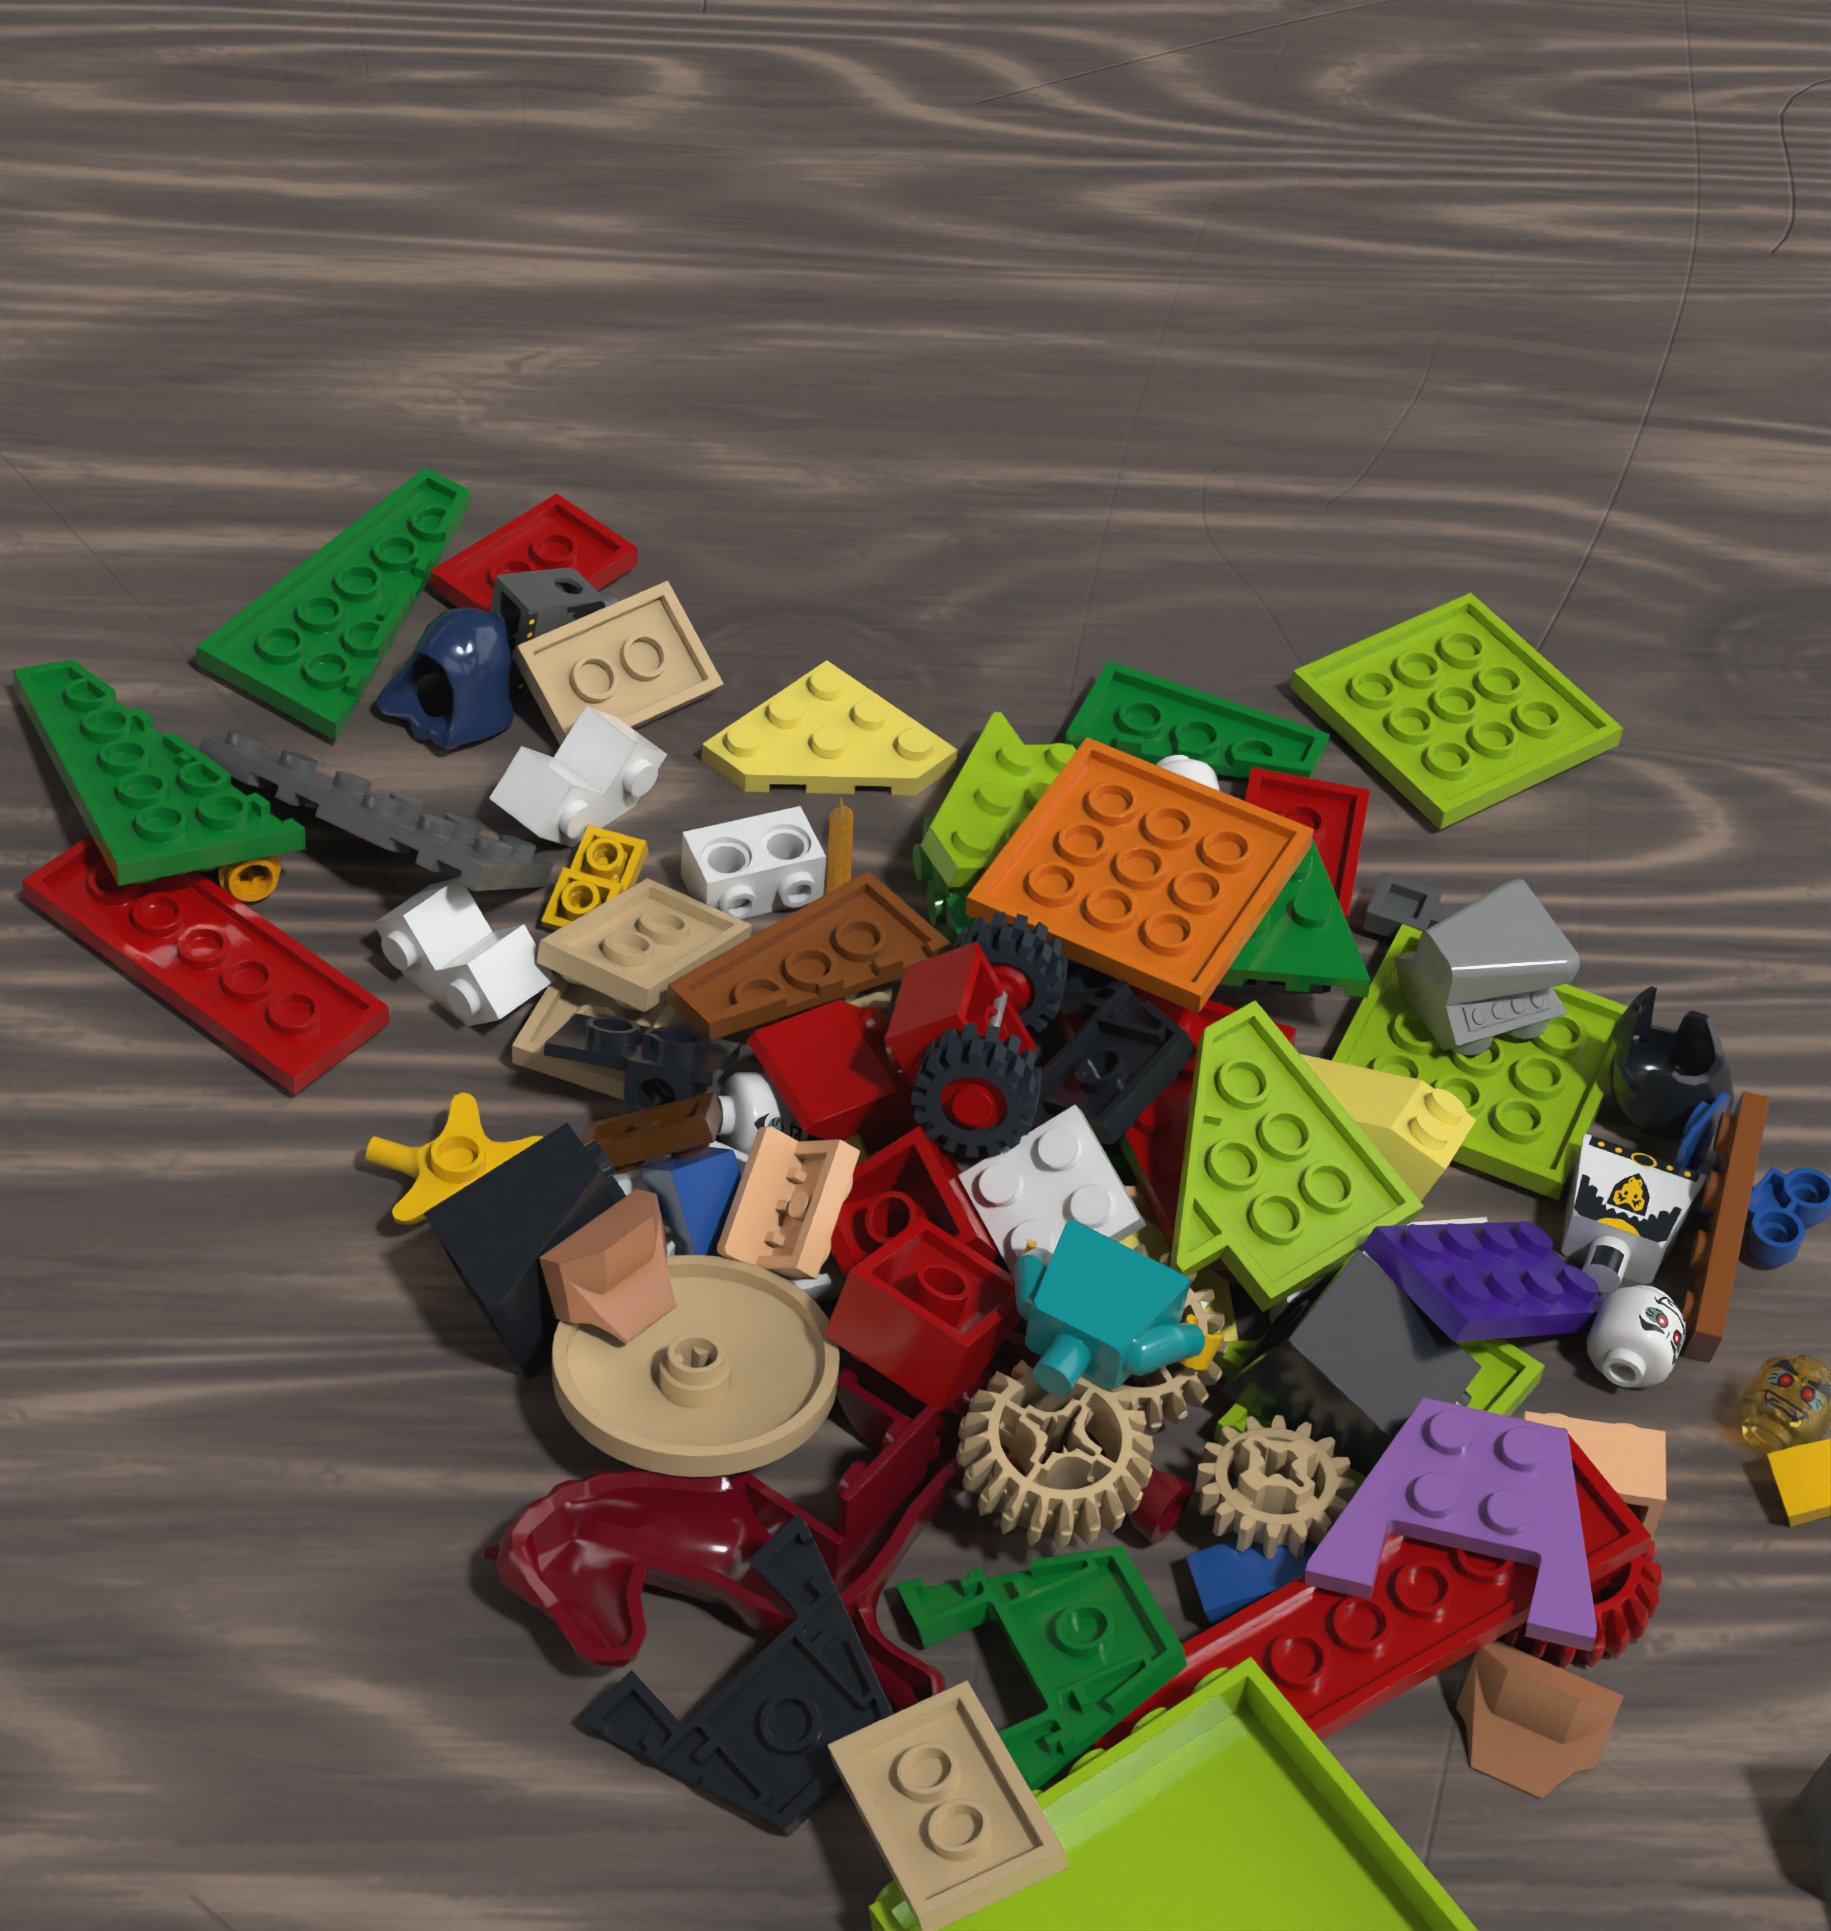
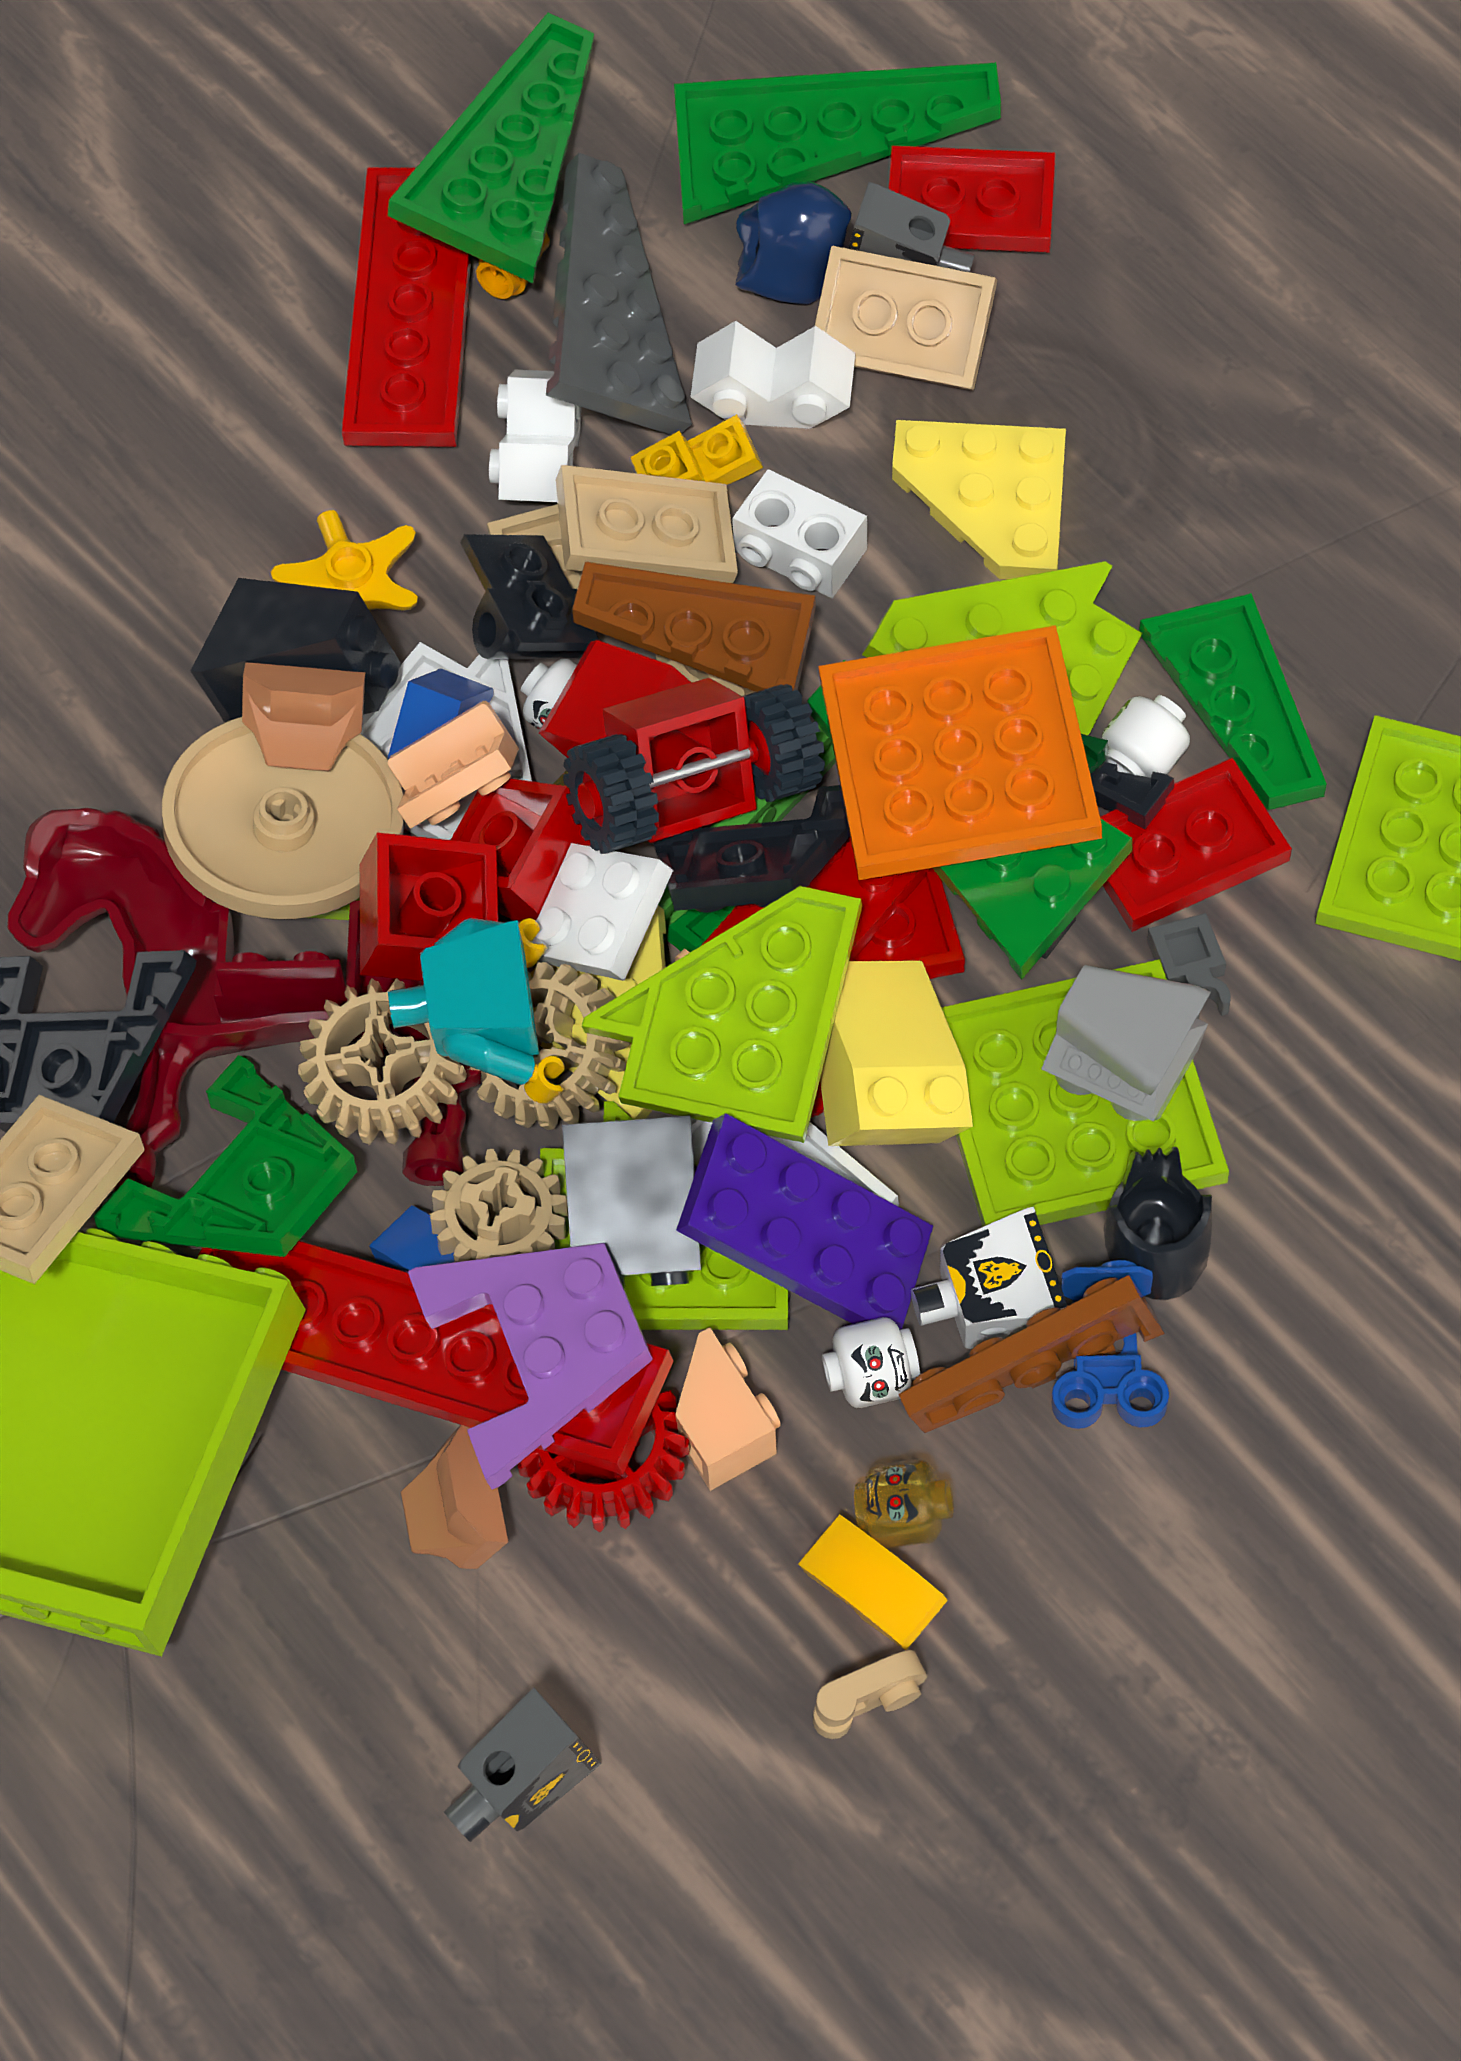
camera: 60 degrees right, 15 degrees up
(672, 1128) = (454, 650): reddish brown plate -> none
(848, 848) = (876, 589): light orange piece -> none

